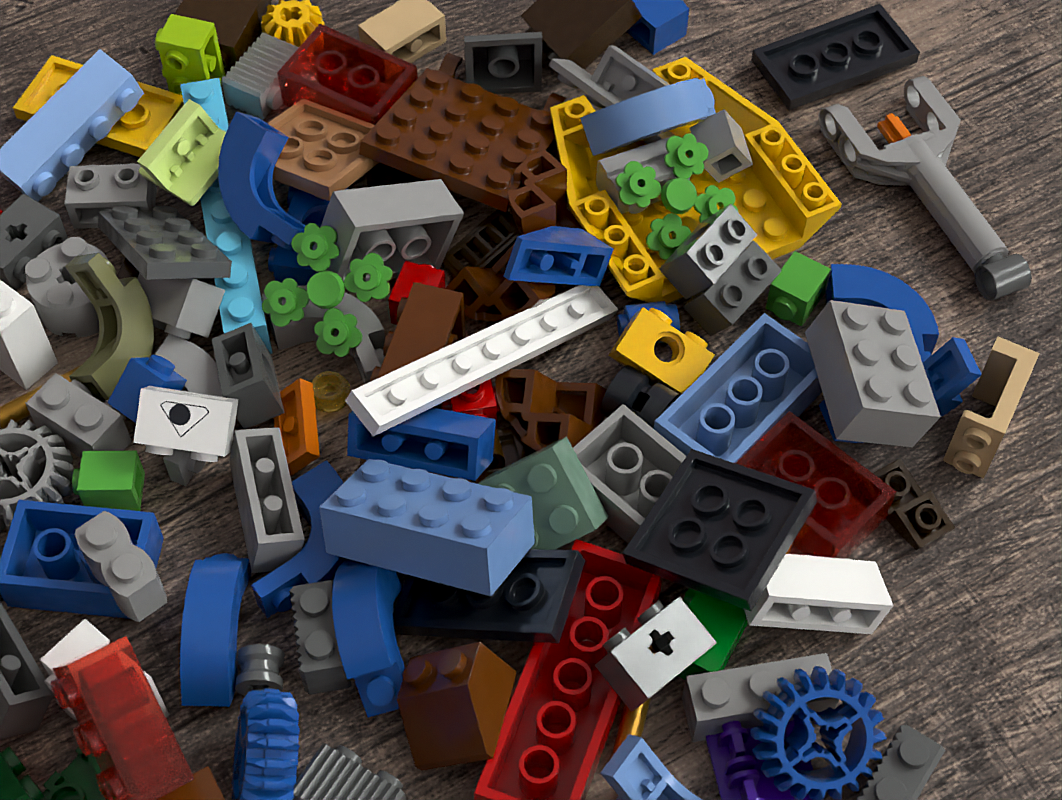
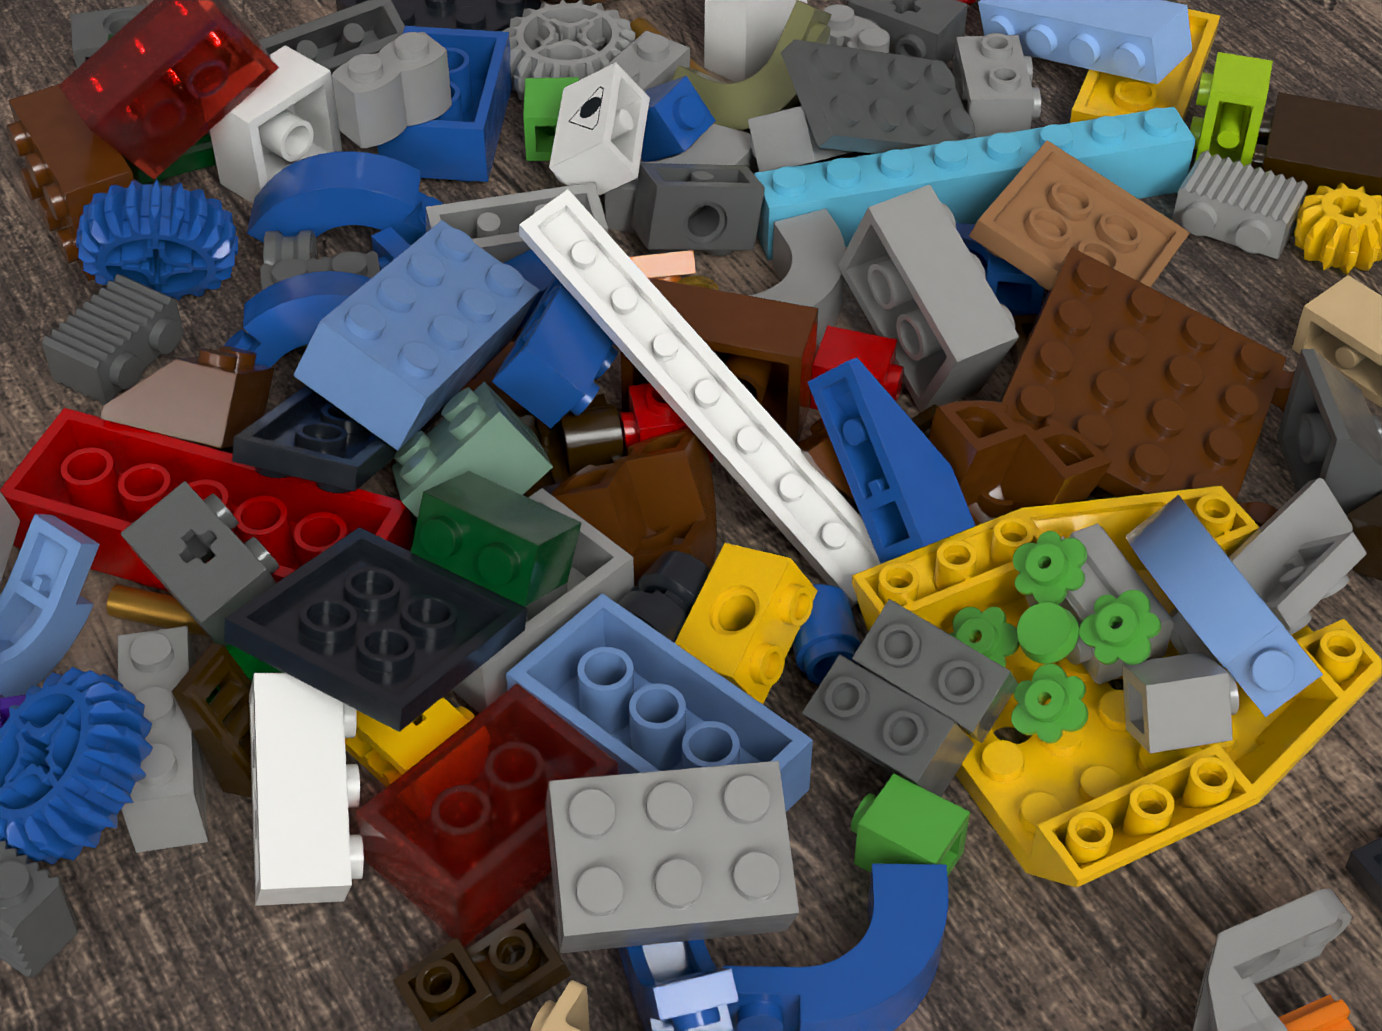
camera: 90 degrees right, 10 degrees down
(185, 154) = (1023, 91): yellowish green bracket -> none
(247, 183) = (988, 149): blue arch -> none
(327, 290) = (807, 234): bright green plant -> none
(345, 75) = (1239, 262): clear red brick -> none
(638, 464) = (495, 537): none -> dark green brick
(760, 643) = (220, 739): none -> dark brown slope

